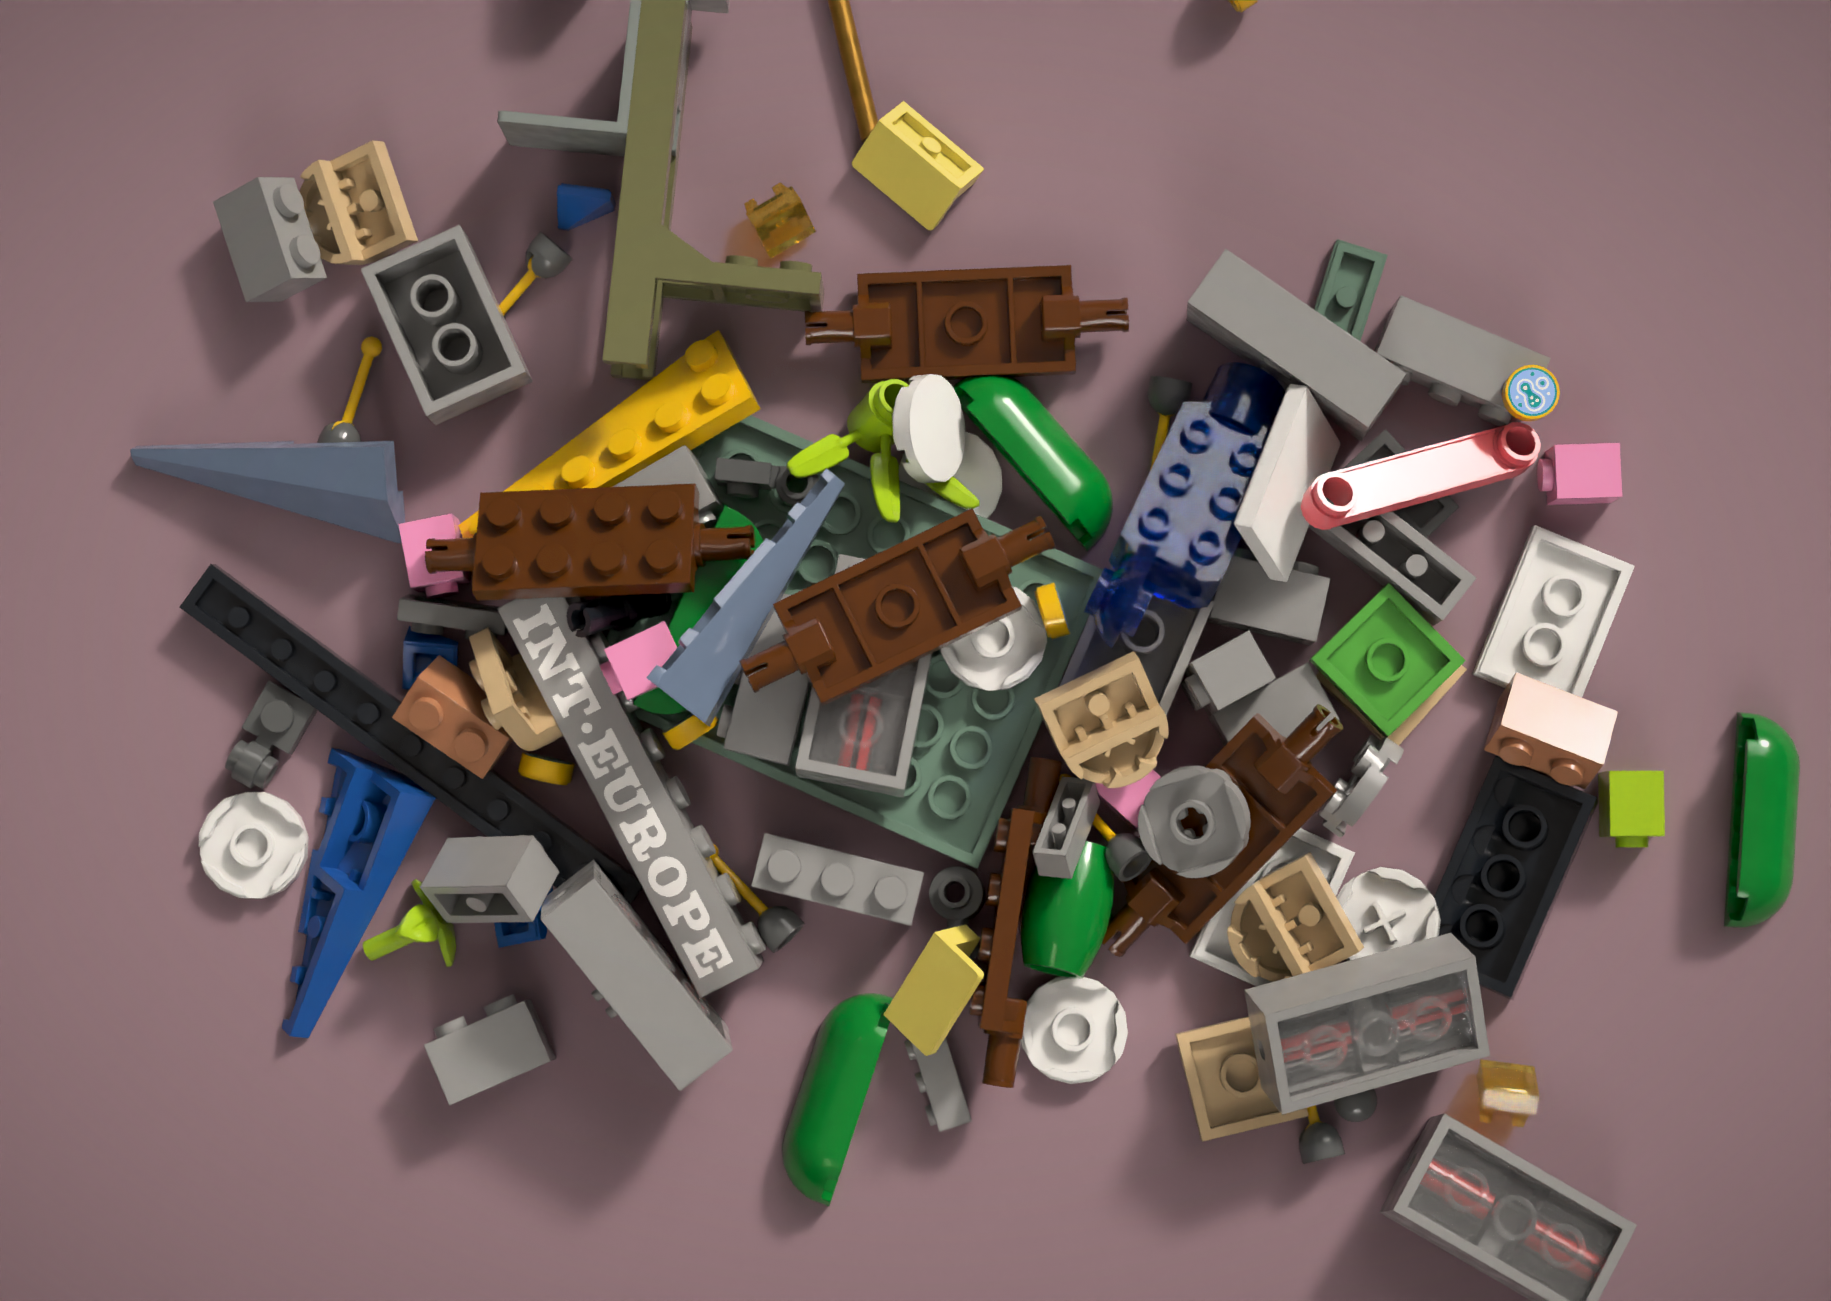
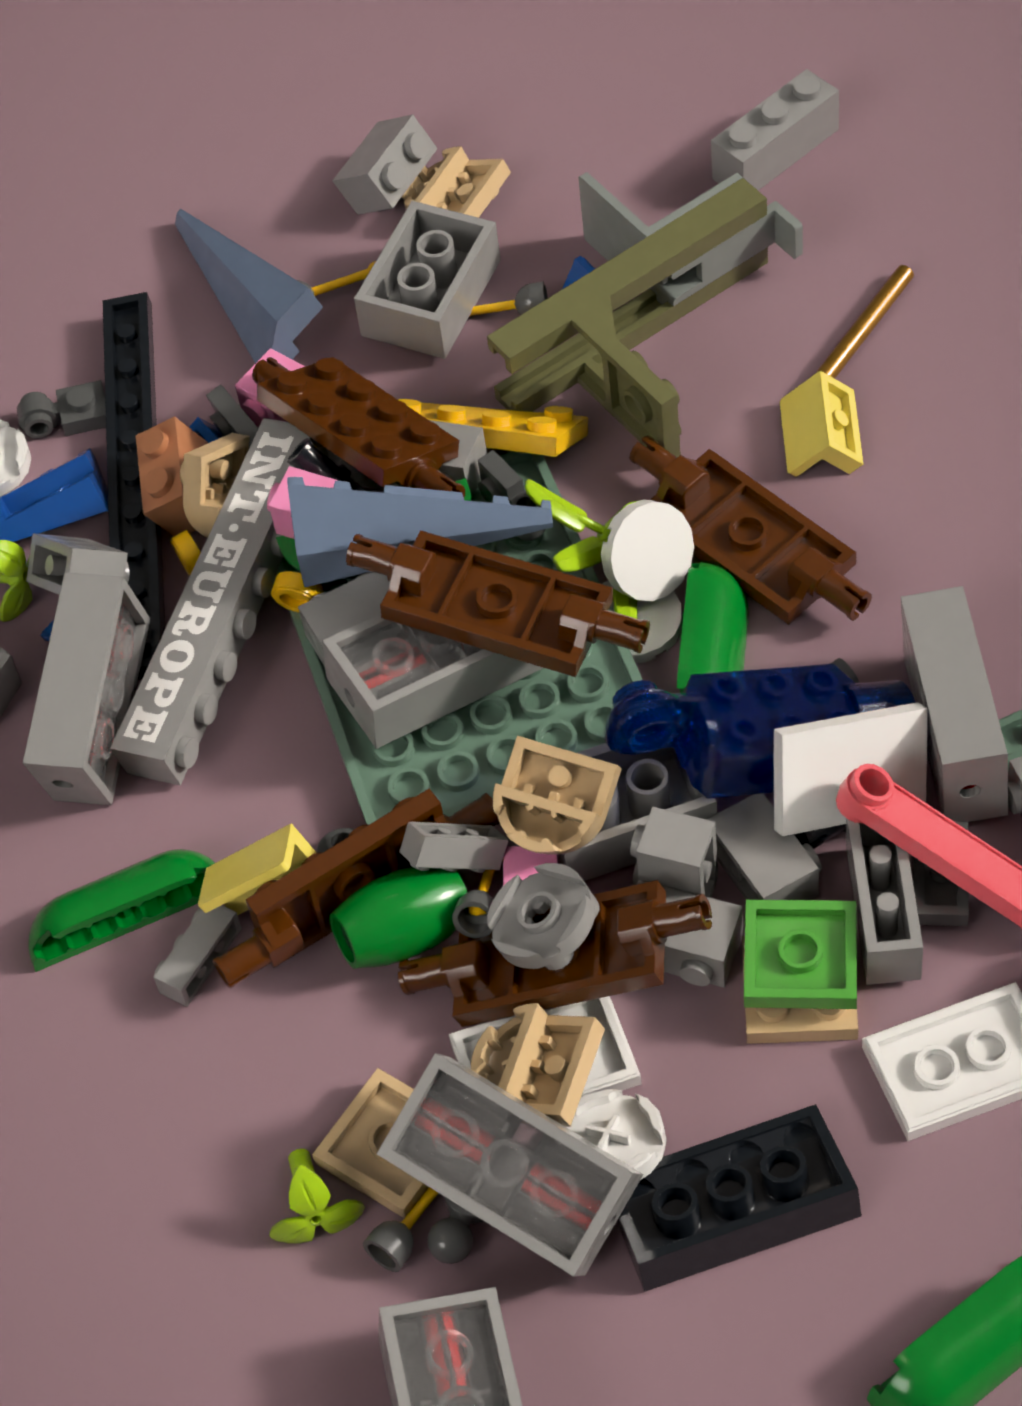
camera: 55 degrees right, 30 degrees down
(775, 924) = (211, 767): dark grey hinge -> none
(779, 220) = (697, 386): clear yellow tile -> none
(837, 879) = (279, 765): light grey brick -> none
(1001, 652) = (549, 709): white tile -> none
(1051, 611) = (595, 721): yellow tile -> none
(1074, 1029) = (318, 1010): white tile -> none
(1243, 1176) = (310, 1198): none -> lime plant
(1363, 786) = (689, 1015): light grey plate -> none
(1507, 1089) = (567, 1336): clear yellow tile -> none
(1550, 731) = (873, 1116): brick -> none
(1631, 807) = (882, 1229): lime brick -> none

